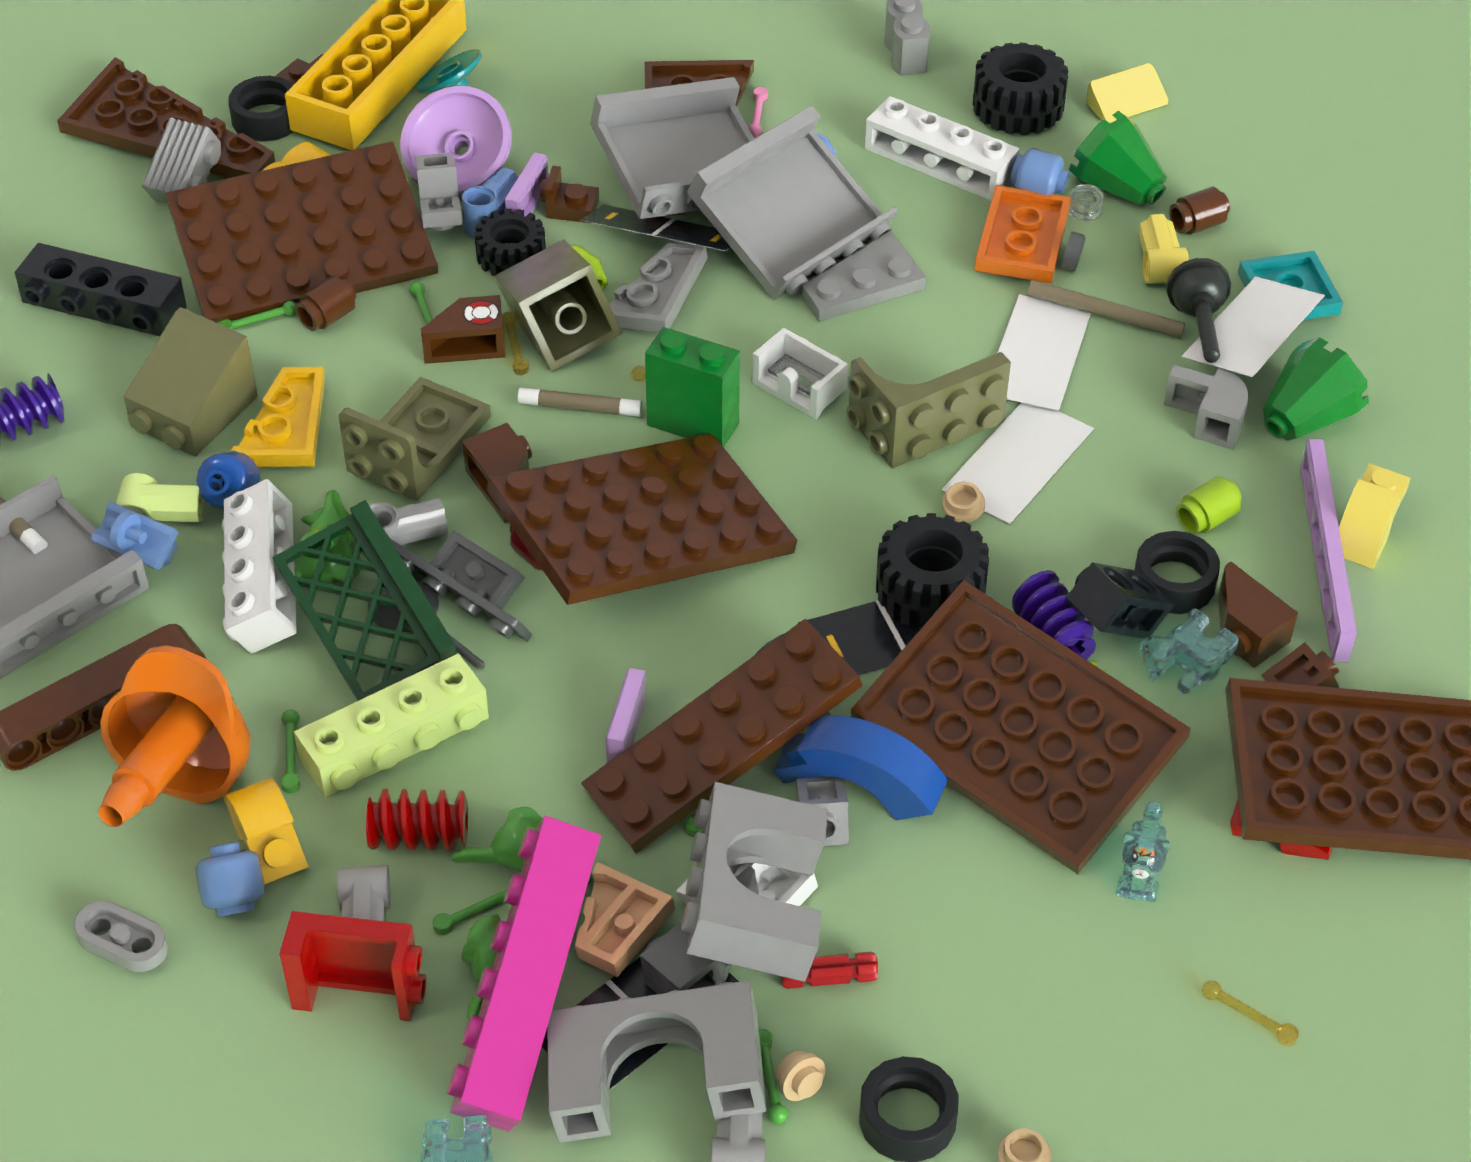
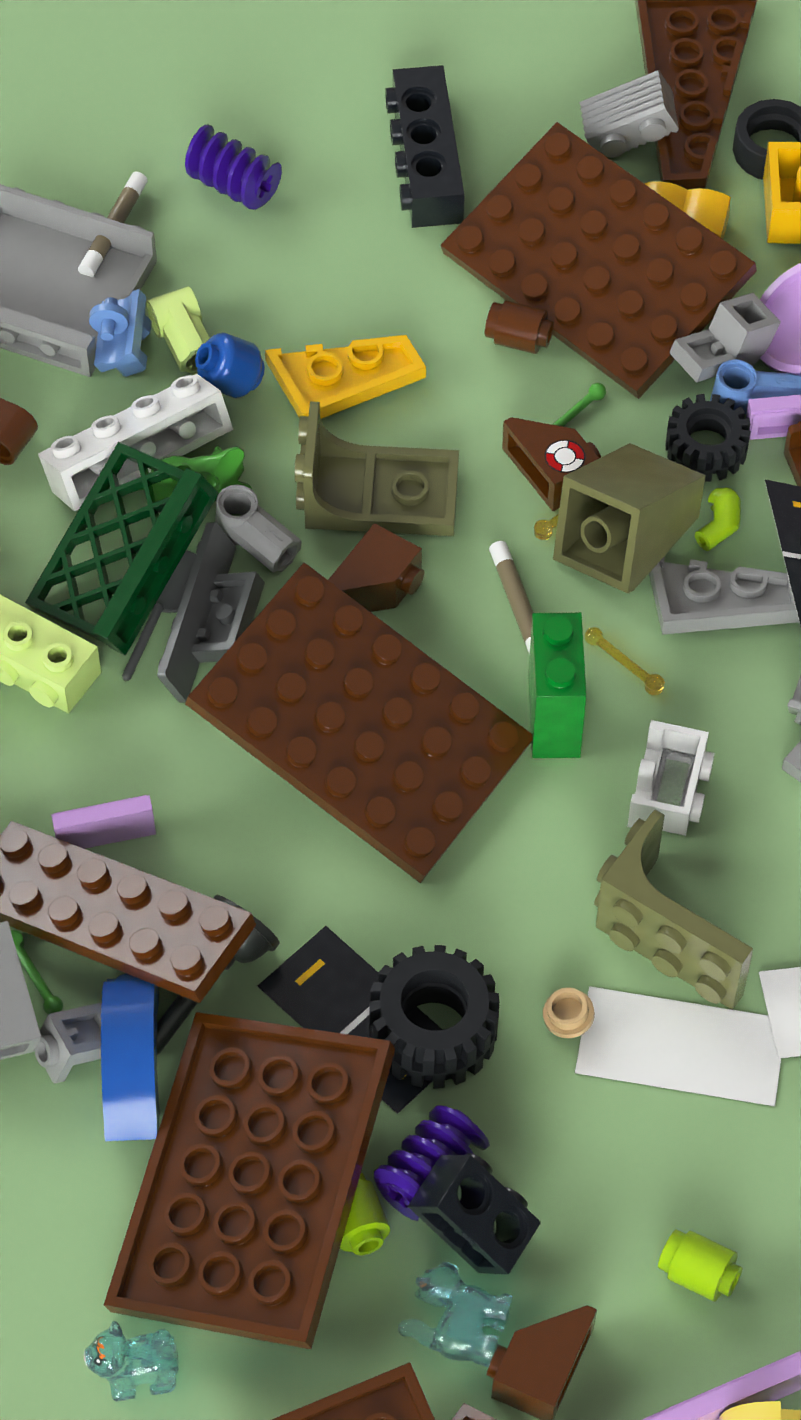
camera: 65 degrees right, 10 degrees up
(191, 383) = (329, 277): olive slope -> none
(288, 309) = (451, 266): bright green hinge -> none
(1186, 549) = (581, 1225): black tyre -> none

